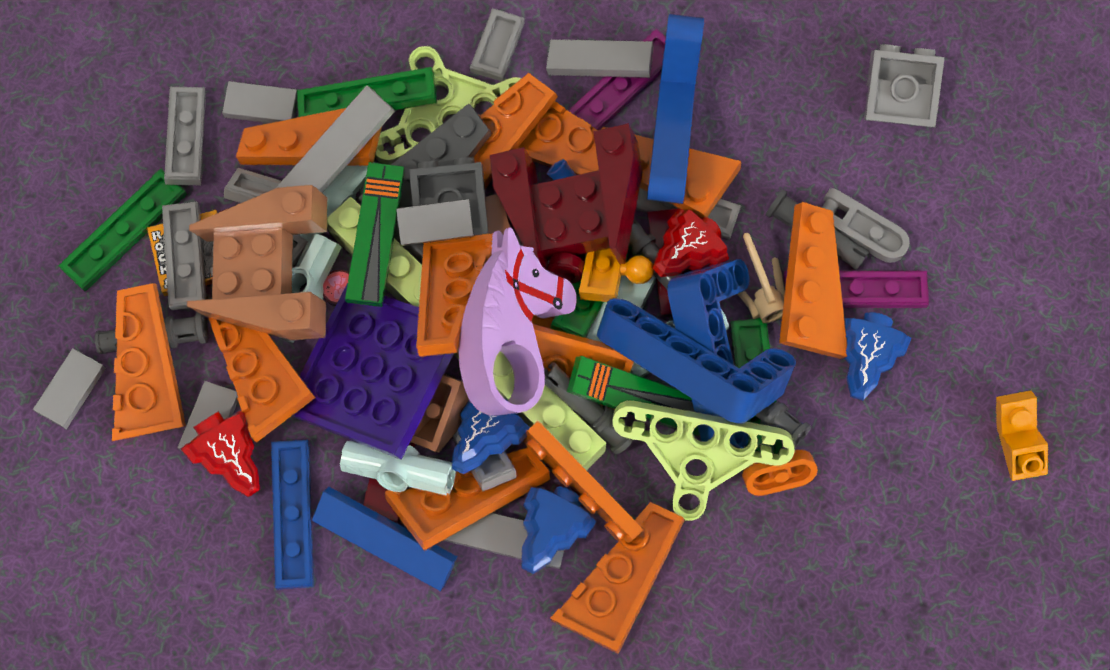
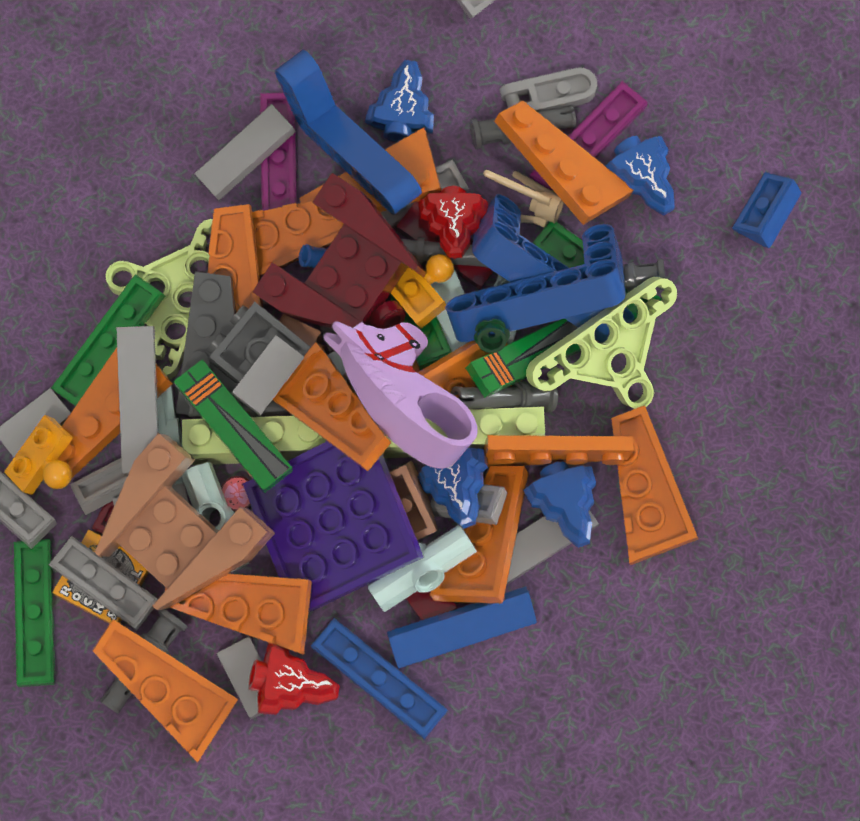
camera: 45 degrees left, 0 degrees up
(69, 388) = (123, 760): light grey tile -> none
(231, 127) = (39, 458): none -> light orange plate
(497, 45) = (159, 214): light grey tile -> none
(613, 357) = (488, 342): none -> dark green plate
(746, 133) = (402, 106): none -> blue rock
(768, 479) = (672, 321): orange plate -> none
(935, 470) = (767, 209): none -> blue slope
(1021, 441) = (802, 134): light orange slope -> none

